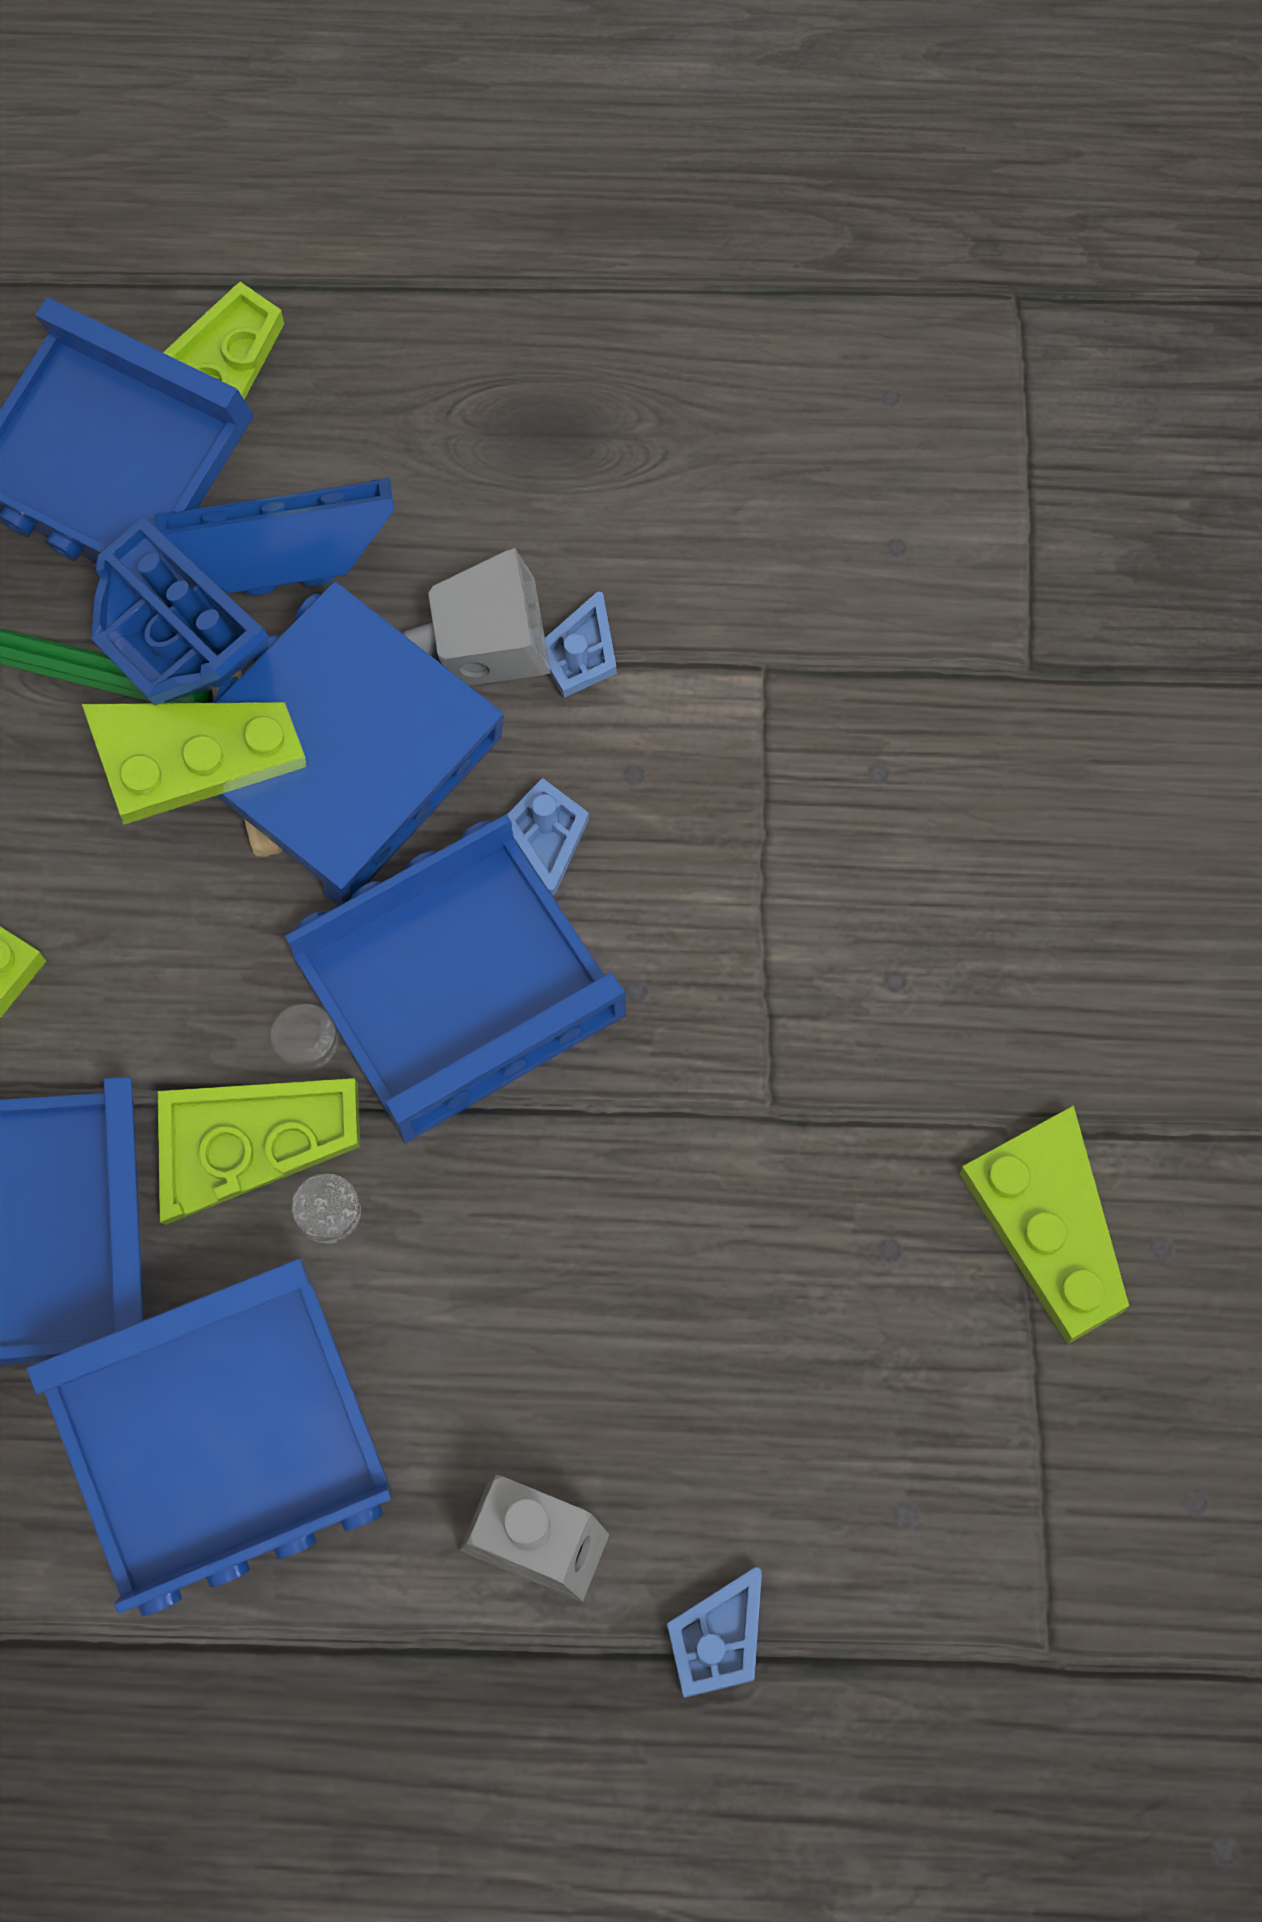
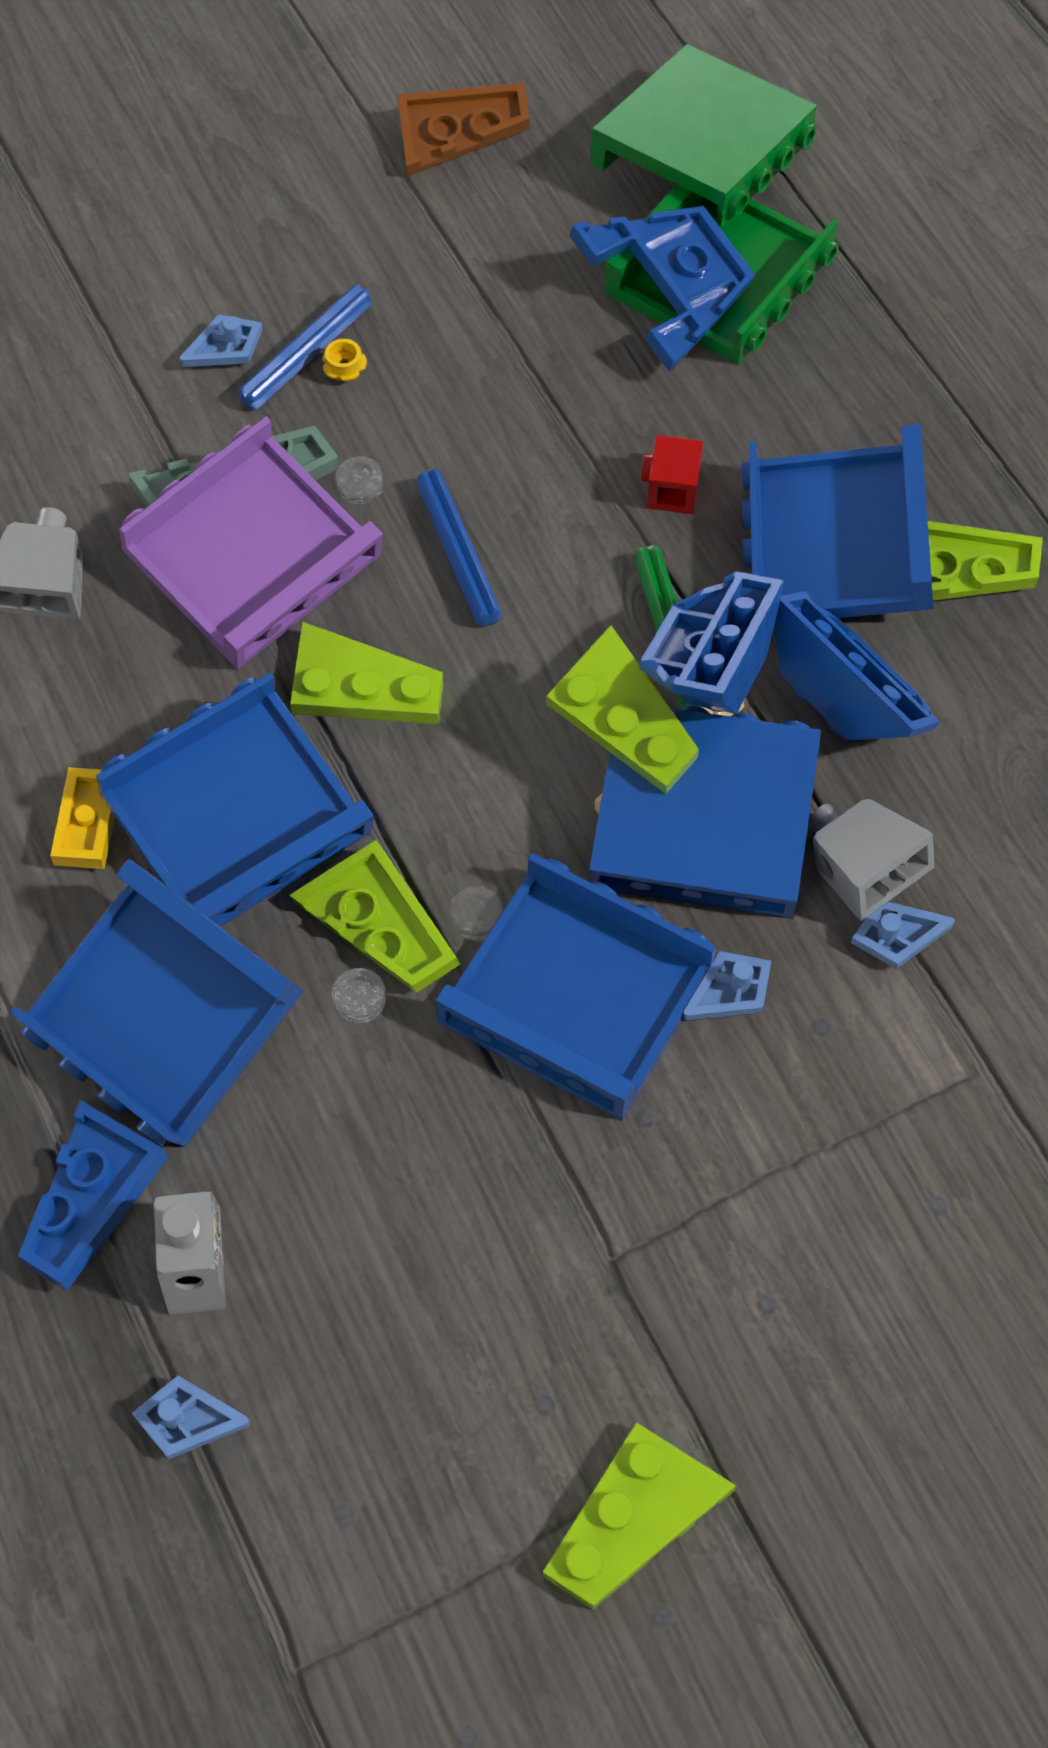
camera: 60 degrees right, 5 degrees down
(392, 1624) = (92, 1191): none -> blue wing

